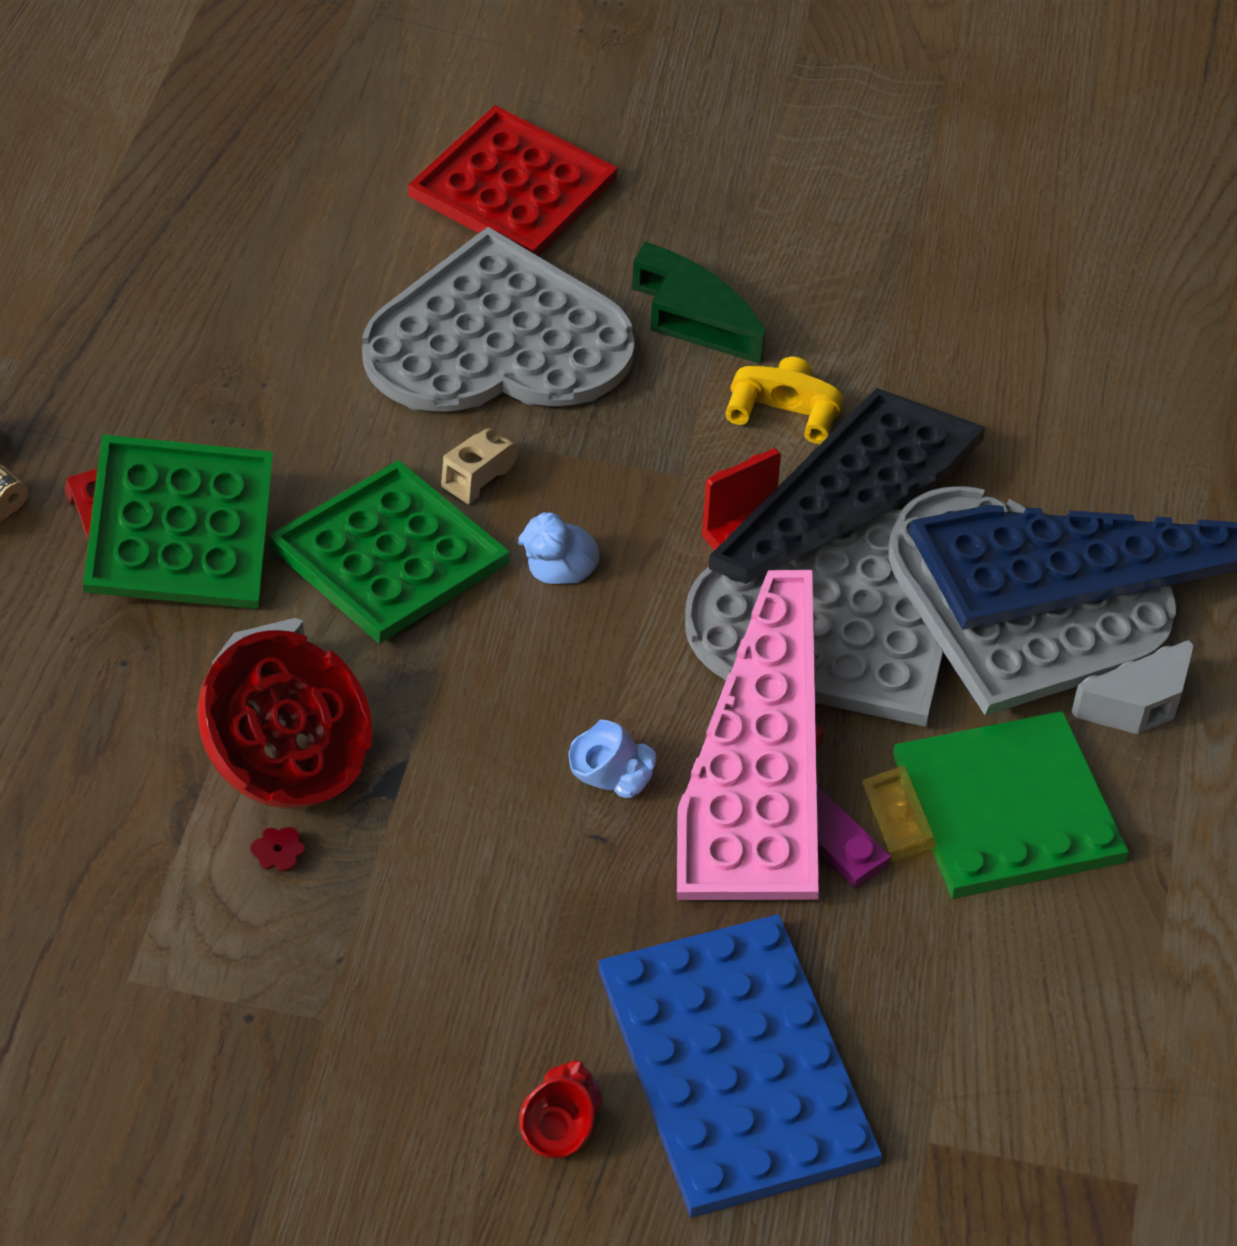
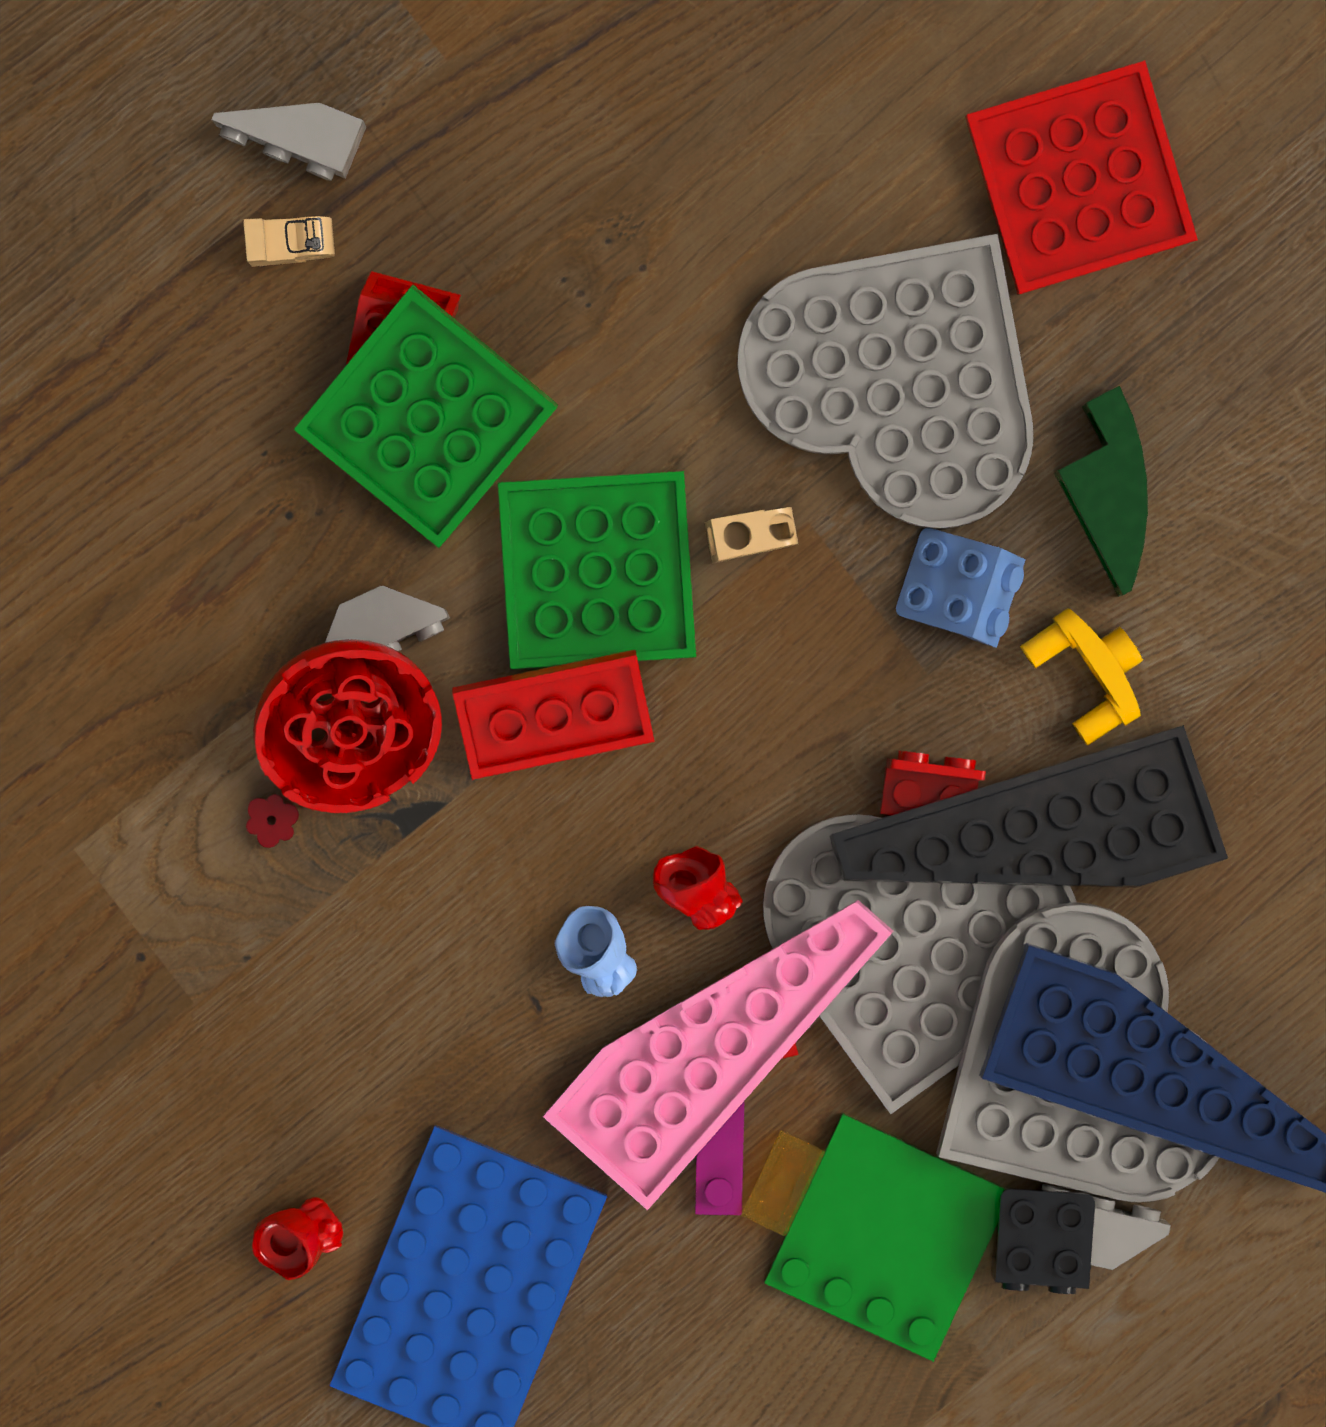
camera: 35 degrees right, 40 degrees up
(436, 639) = (553, 714): none -> red plate
(558, 550) = (739, 693): light blue hair -> none
(649, 671) = (697, 887): none -> red hair
(650, 403) = (961, 586): none -> medium blue bracket
(1121, 712) = (1044, 1240): none -> black bracket

